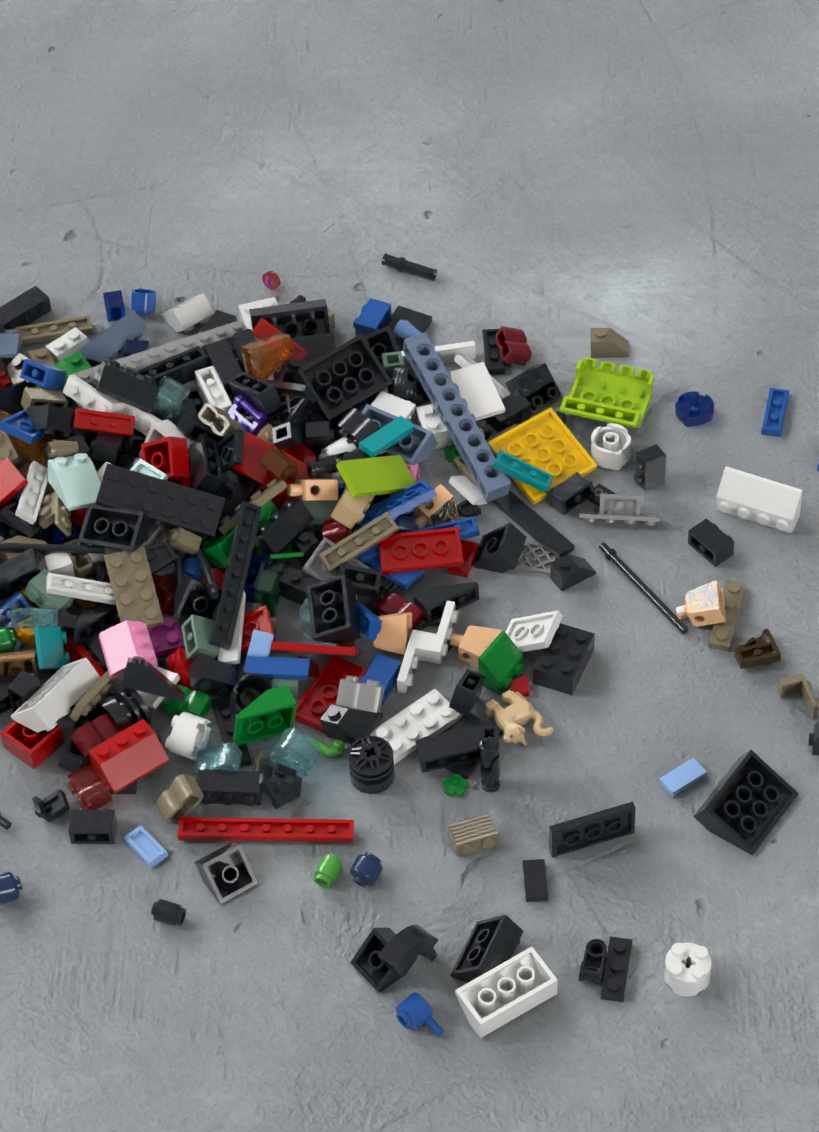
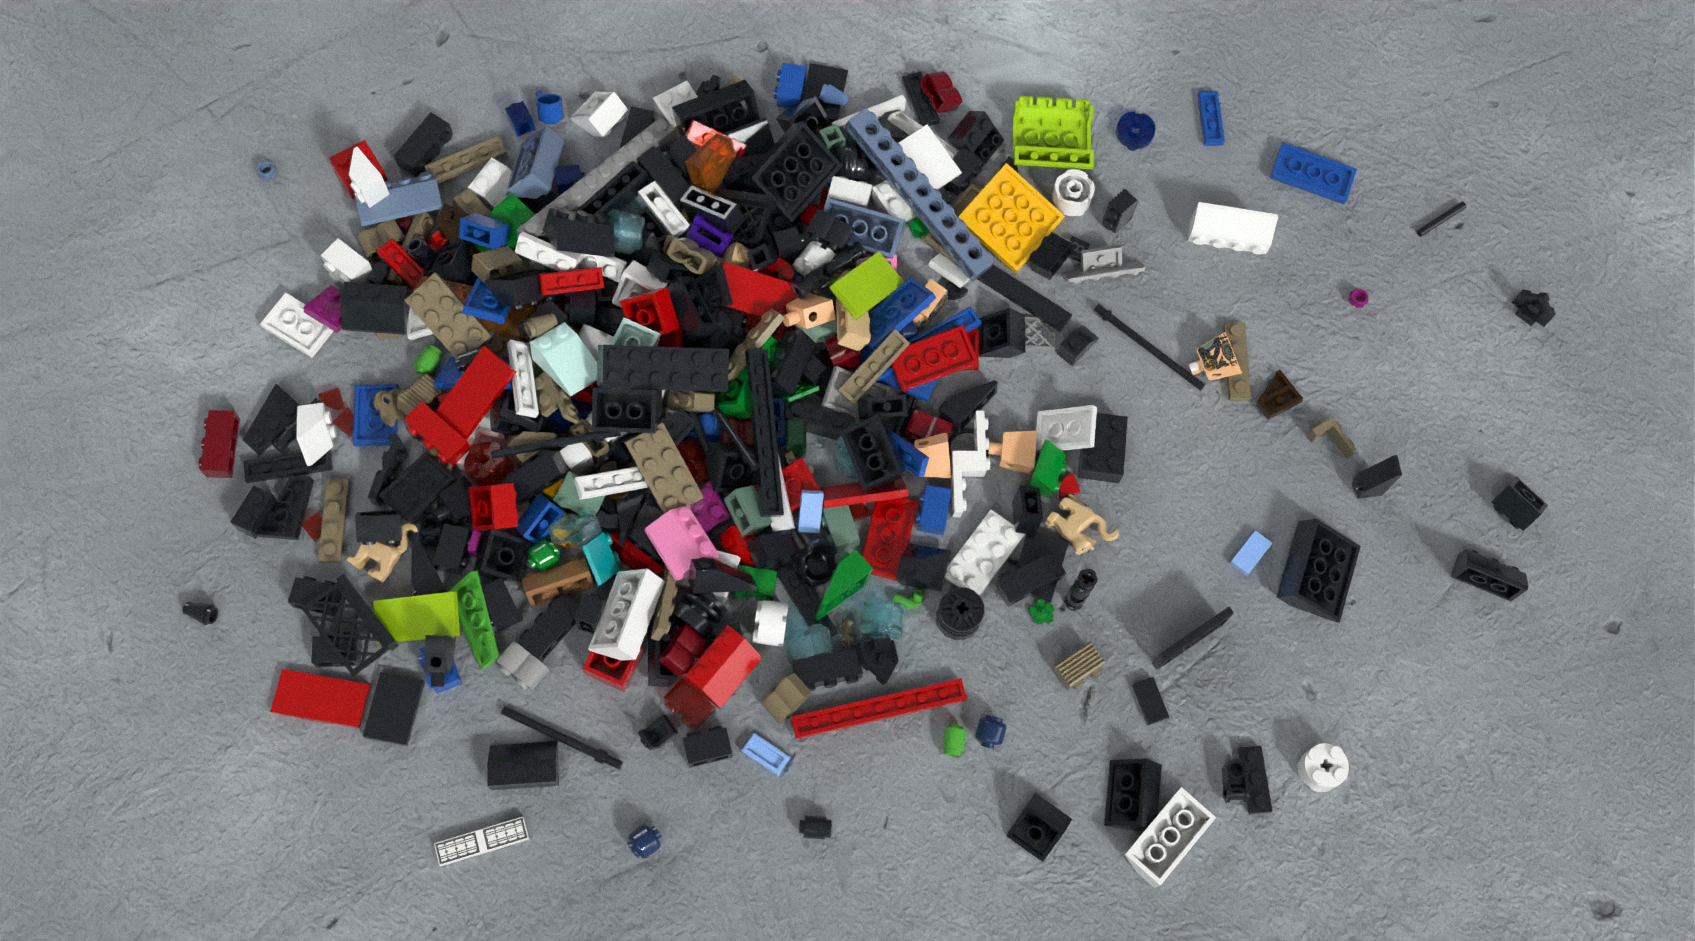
camera: 25 degrees left, 20 degrees up
(226, 872) = (856, 766): black slope -> none
(271, 280) = (672, 56): clear red tile -> none
(278, 667) = (835, 525): blue tile -> none
(279, 464) = (769, 295): reddish brown brick -> none
(359, 694) = (925, 538): light grey brick -> none
(386, 436) = (862, 236): teal tile -> none
(402, 264) = (806, 14): black pin -> none
(406, 946) = (1069, 822): black arch -> none
(415, 1012) = (1088, 880): blue piece -> none
(522, 471) = (1002, 244): teal tile -> none
(607, 343) = (1030, 70): dark tan slope -> none
(711, 542) = (1199, 283): black brick -> none

